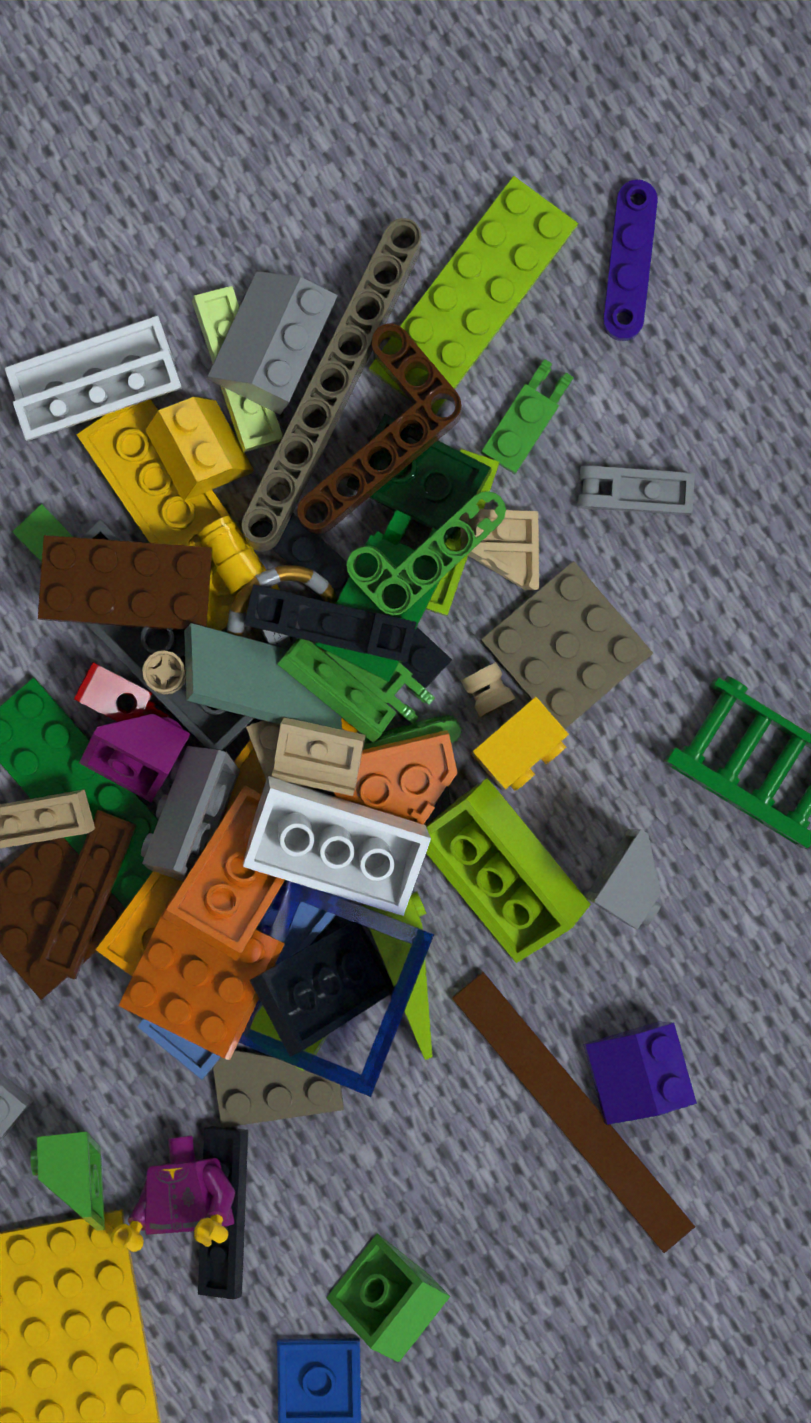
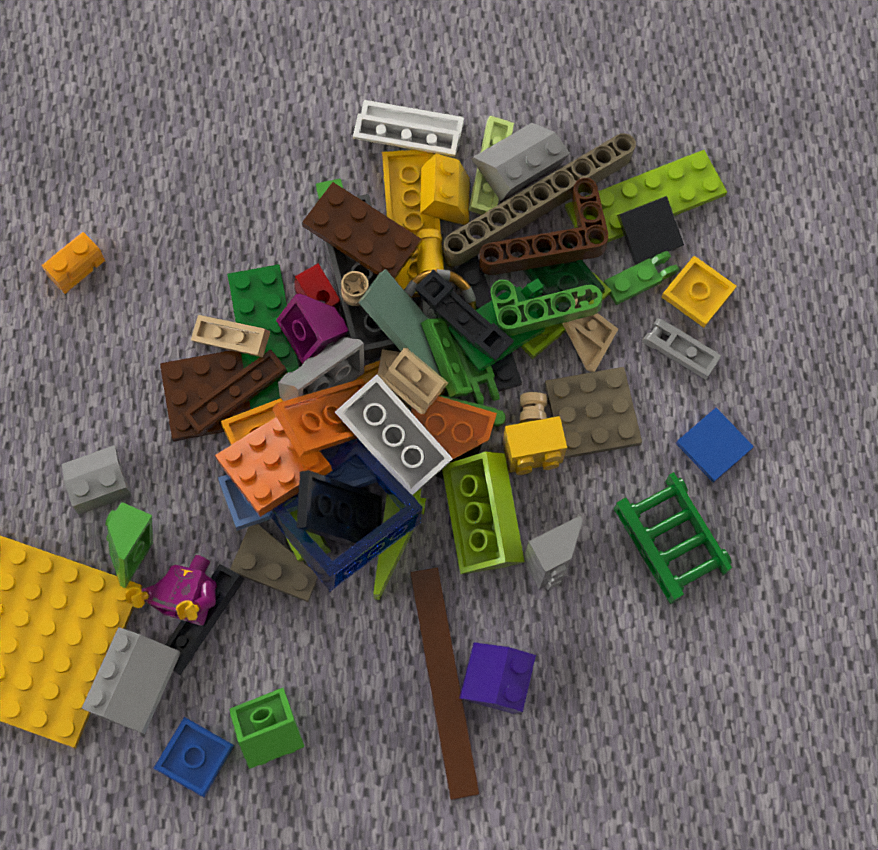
camera: 25 degrees right, 15 degrees down
(187, 1342) = (131, 680): none -> light grey slope
(505, 342) = (650, 229): none -> black tile
(616, 394) = (699, 291): none -> yellow plate
(630, 260) = (746, 227): dark purple plate -> none
(748, 601) = (714, 445): none -> blue tile

